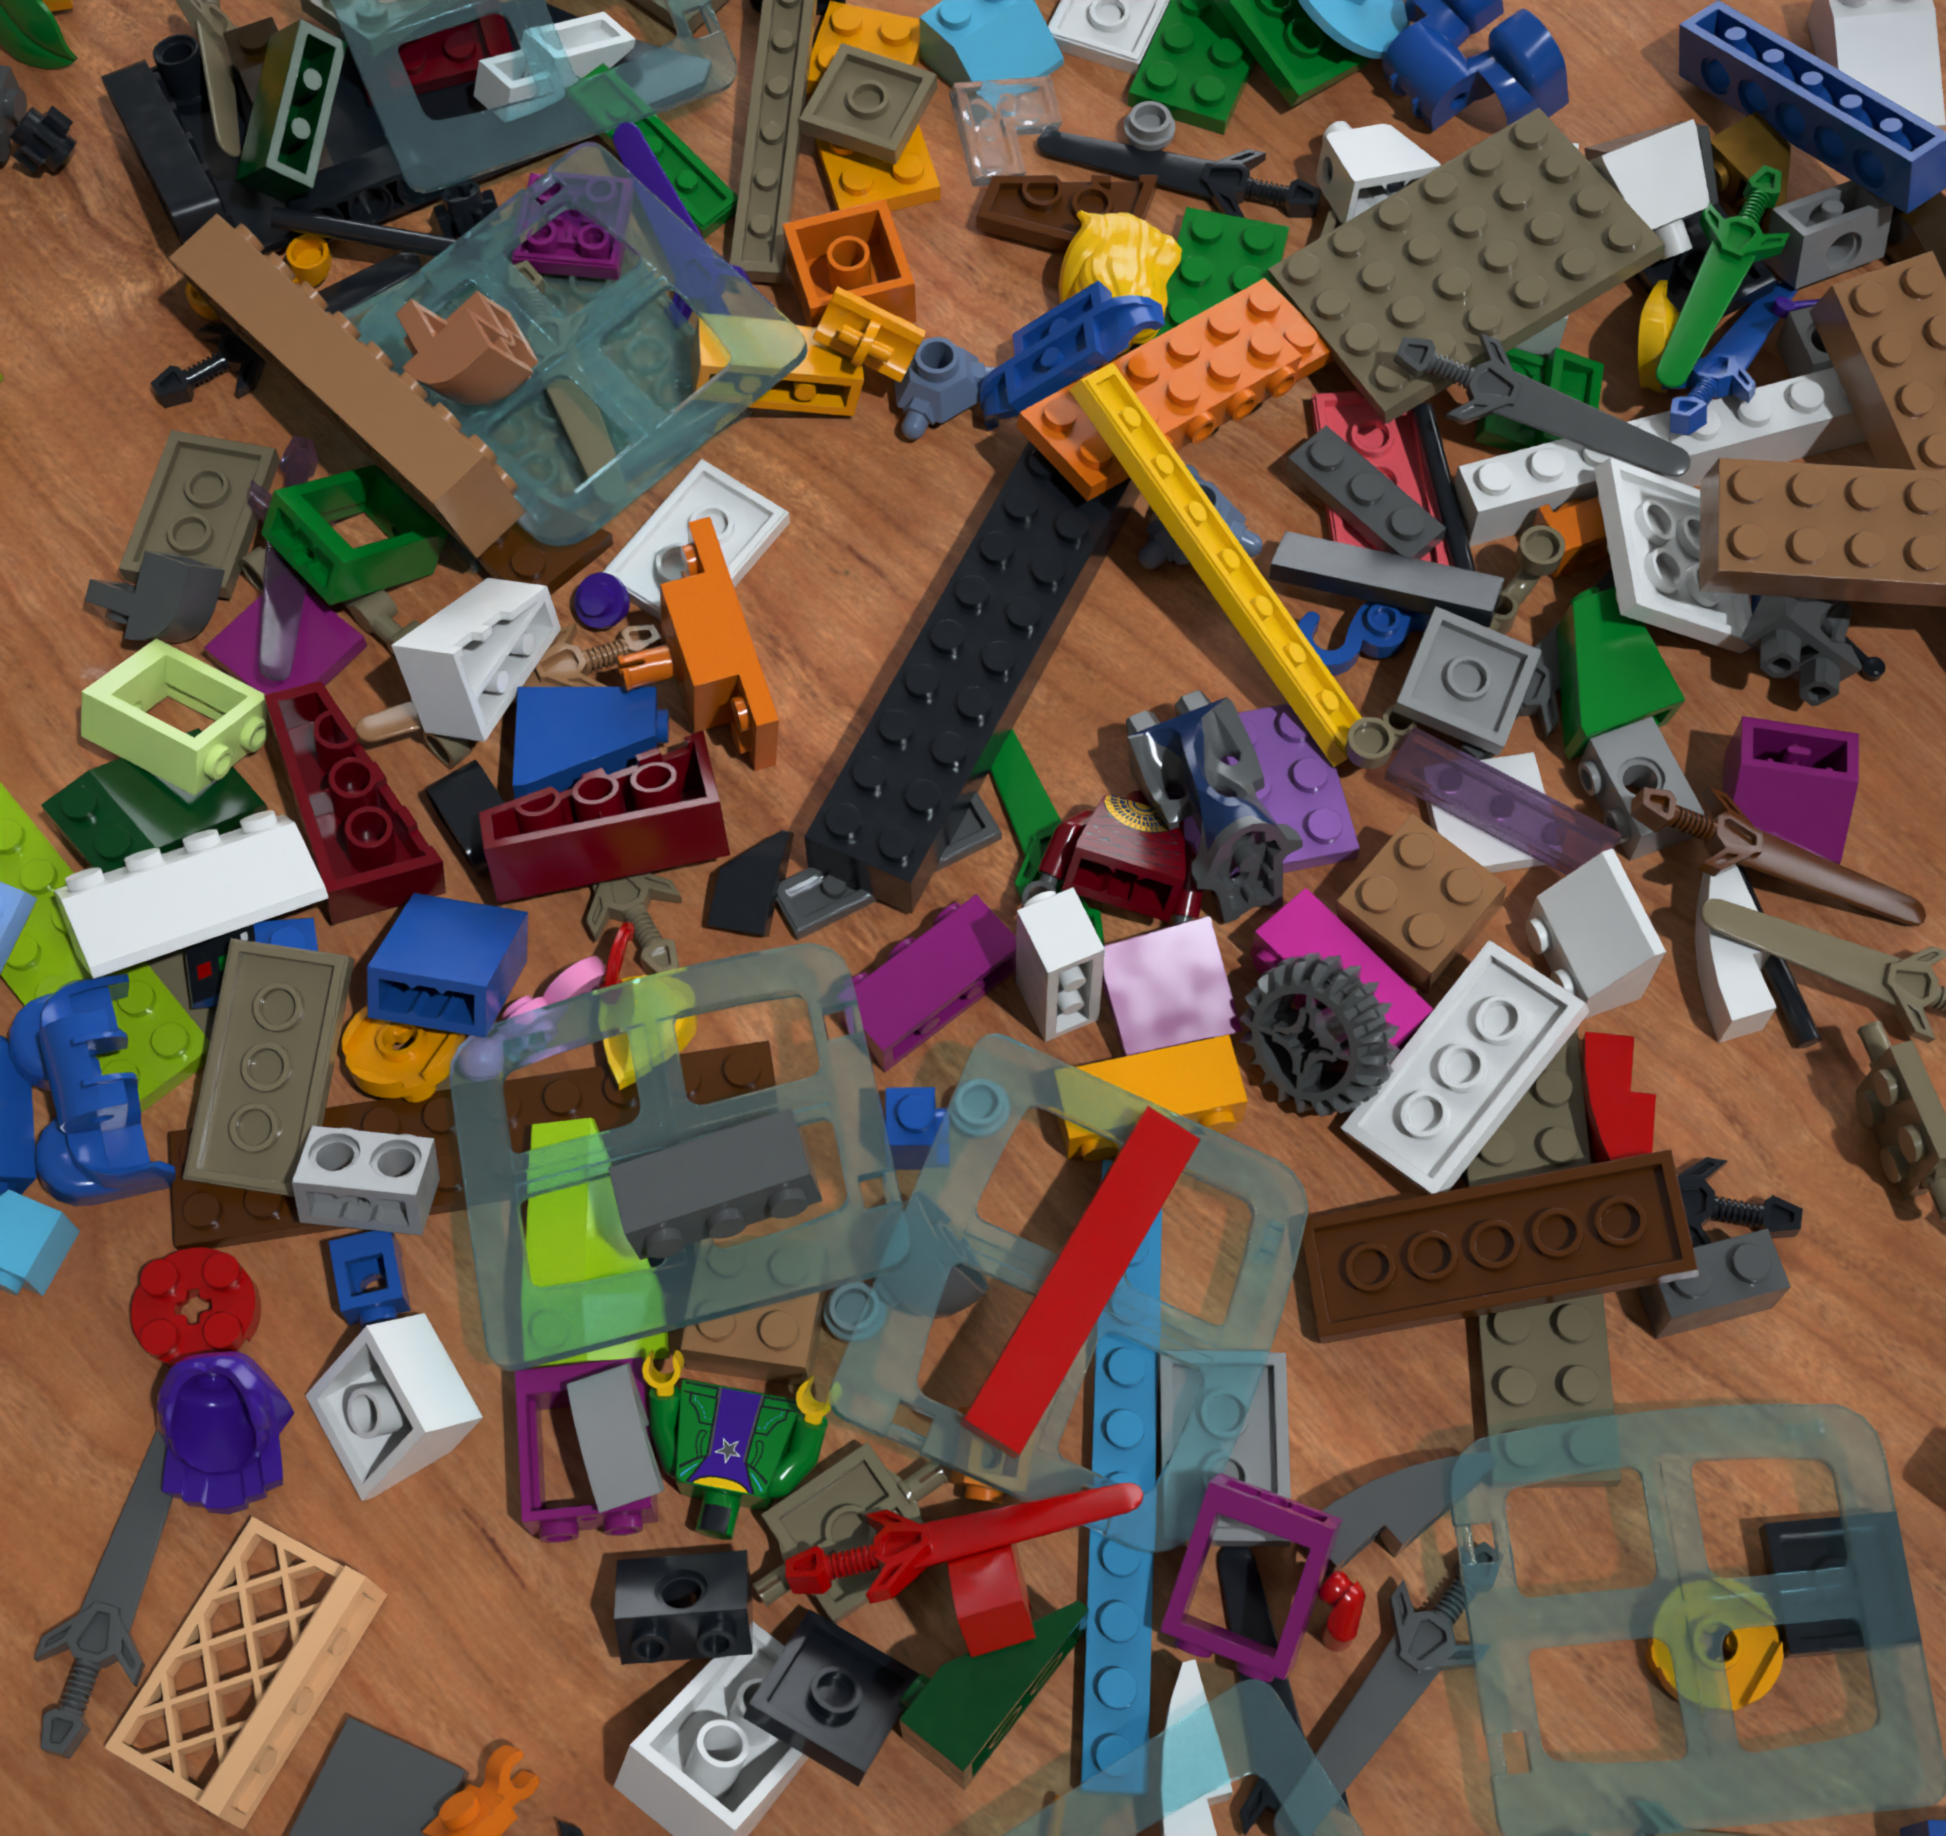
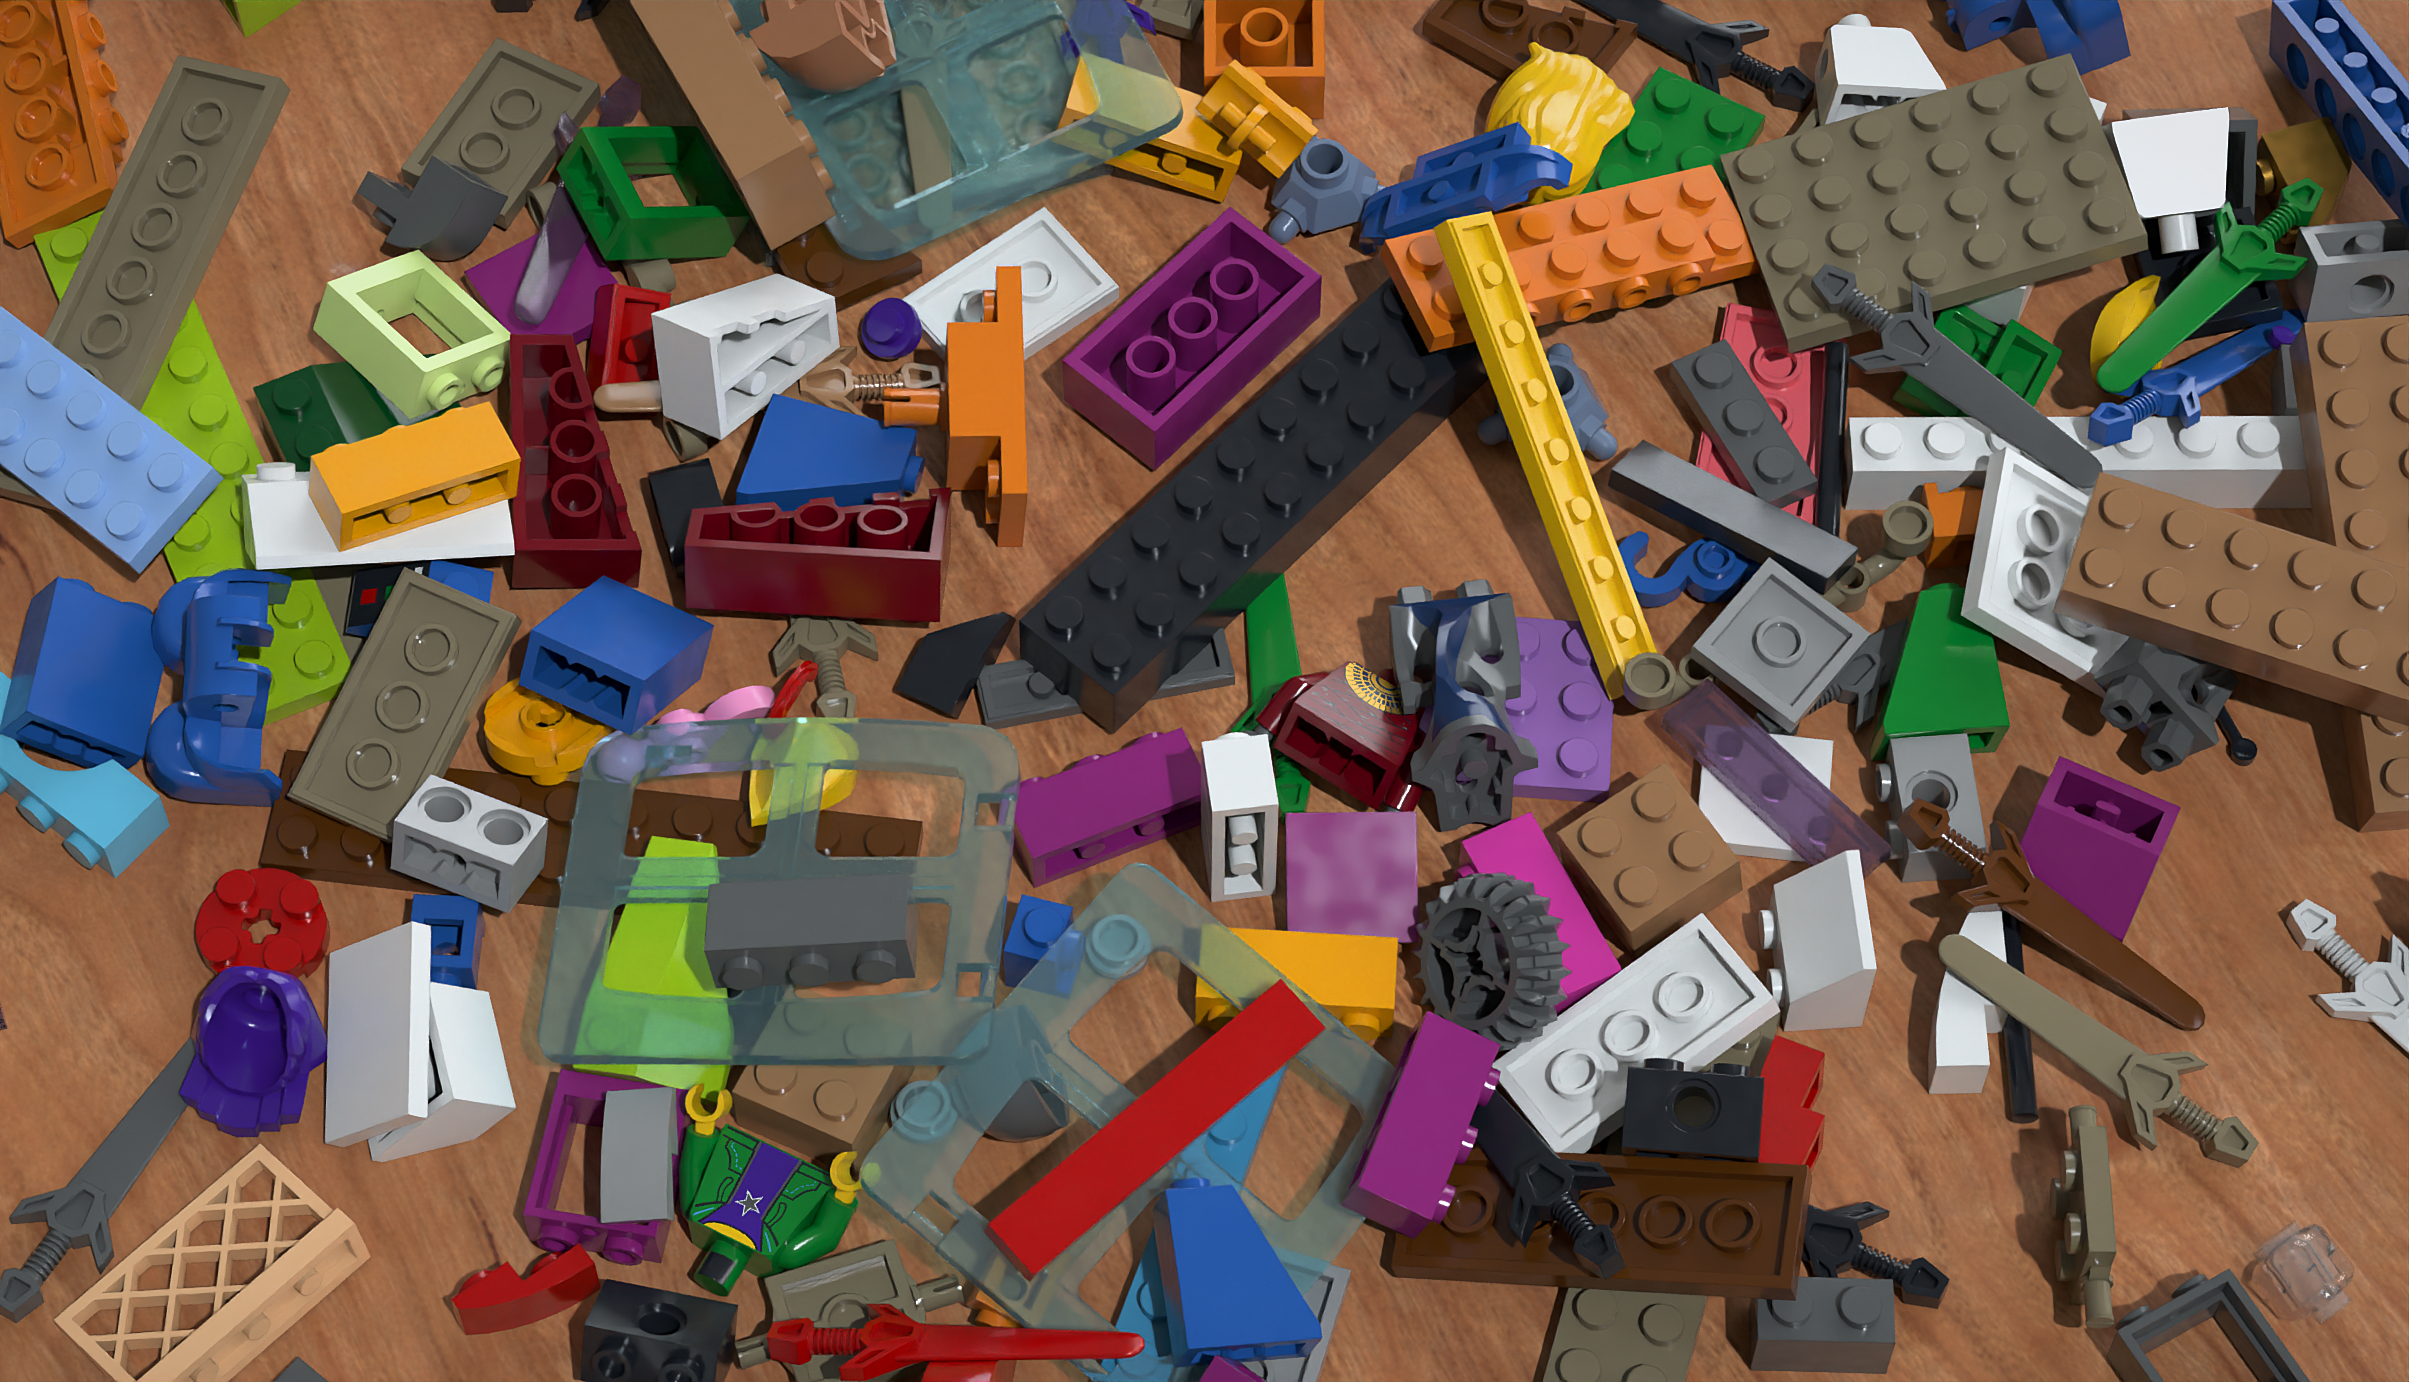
camera: 15 degrees right, 5 degrees down
(214, 851) = (413, 475): none -> light orange brick
(335, 1386) = (378, 1035): none -> white tile
(367, 669) = (624, 337): none -> red slope
(525, 1605) = (503, 1301): none -> red slope
(869, 542) = (1192, 338): none -> magenta brick
(1188, 1403) = (1225, 1281): none -> blue slope
(1312, 1204) = (1423, 1126): none -> magenta brick
(1434, 1226) = (1546, 1185): none -> black sword
(1591, 1135) = (1662, 1083): none -> black brick

